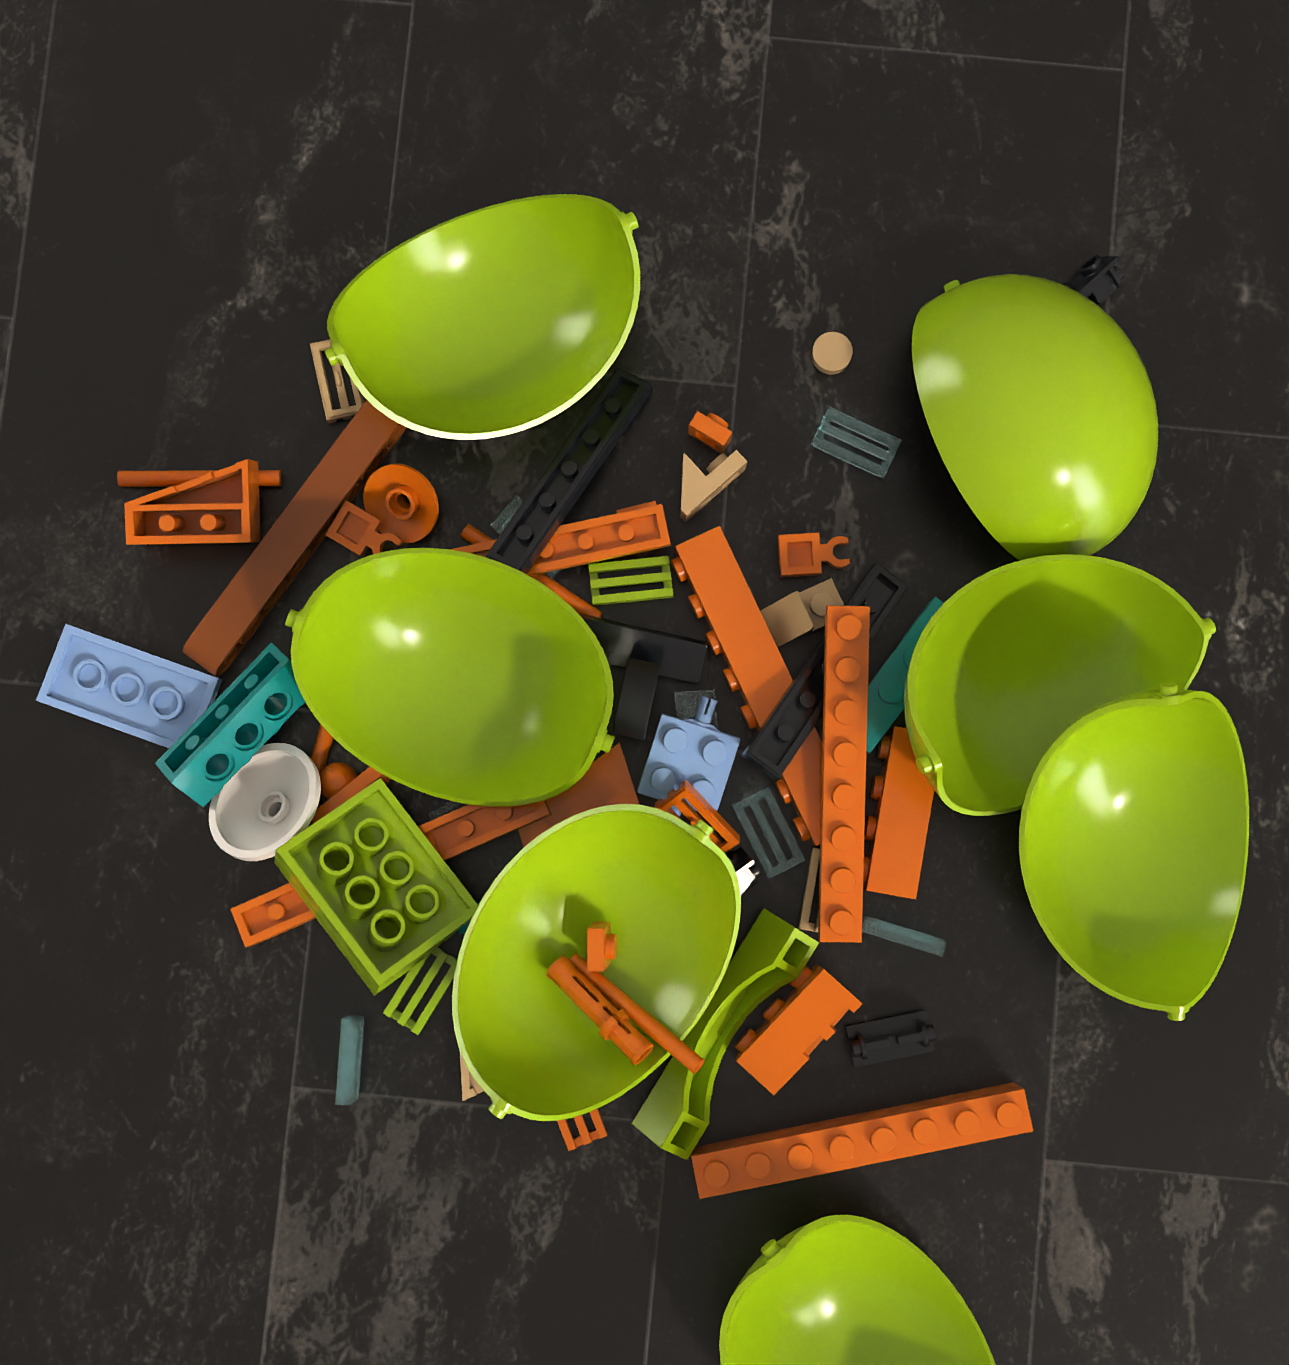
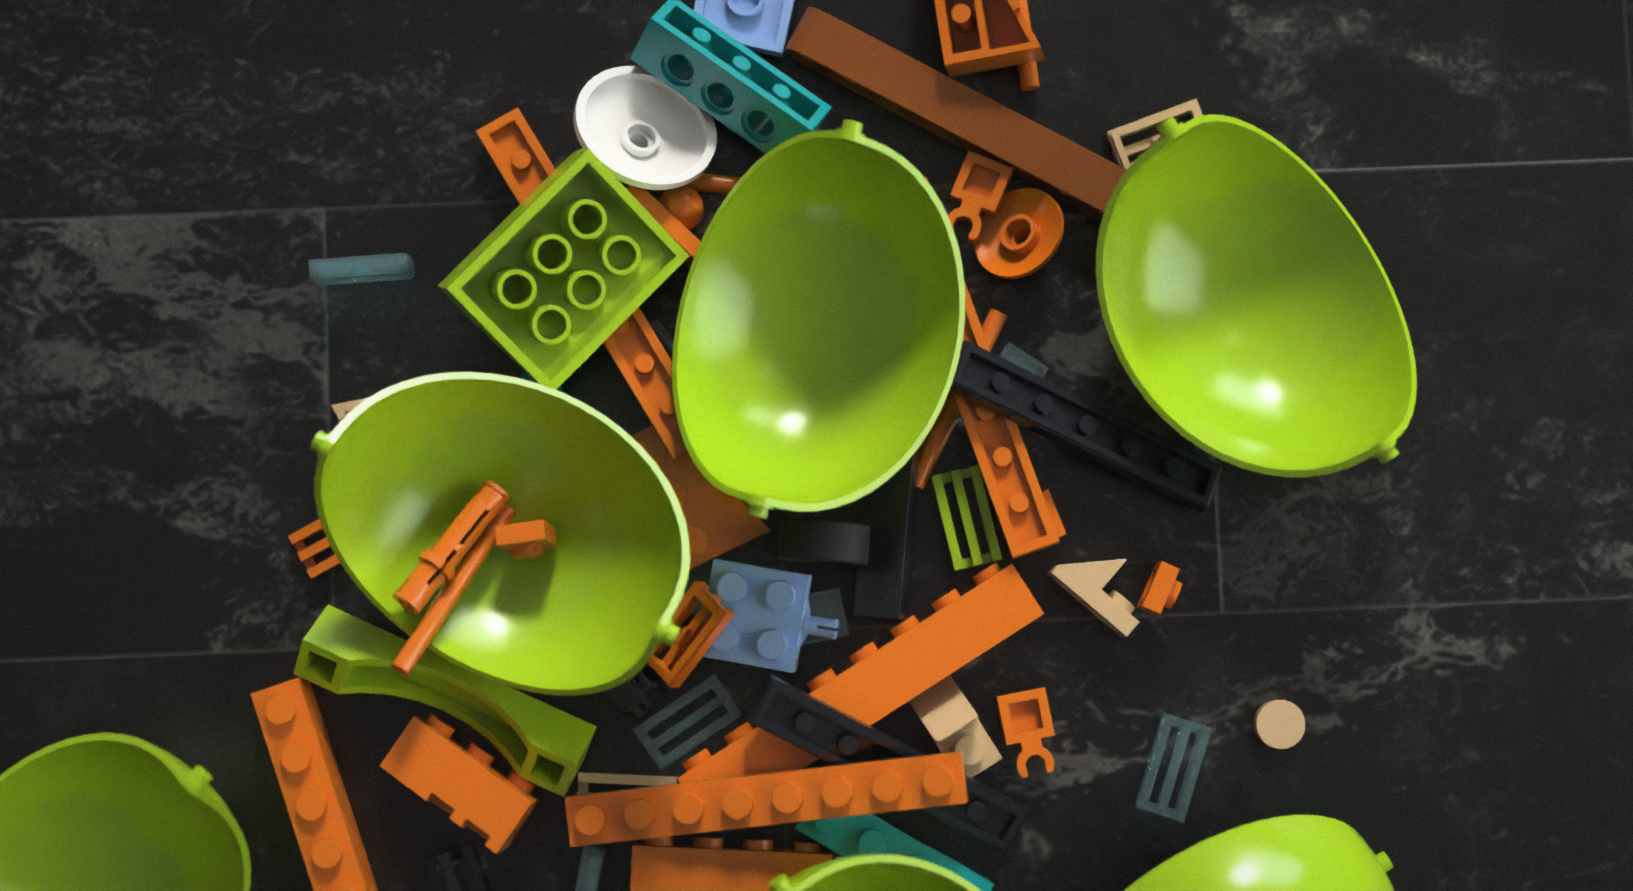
camera: 80 degrees right, 0 degrees up
(404, 1018) = (418, 325): lime tile -> none

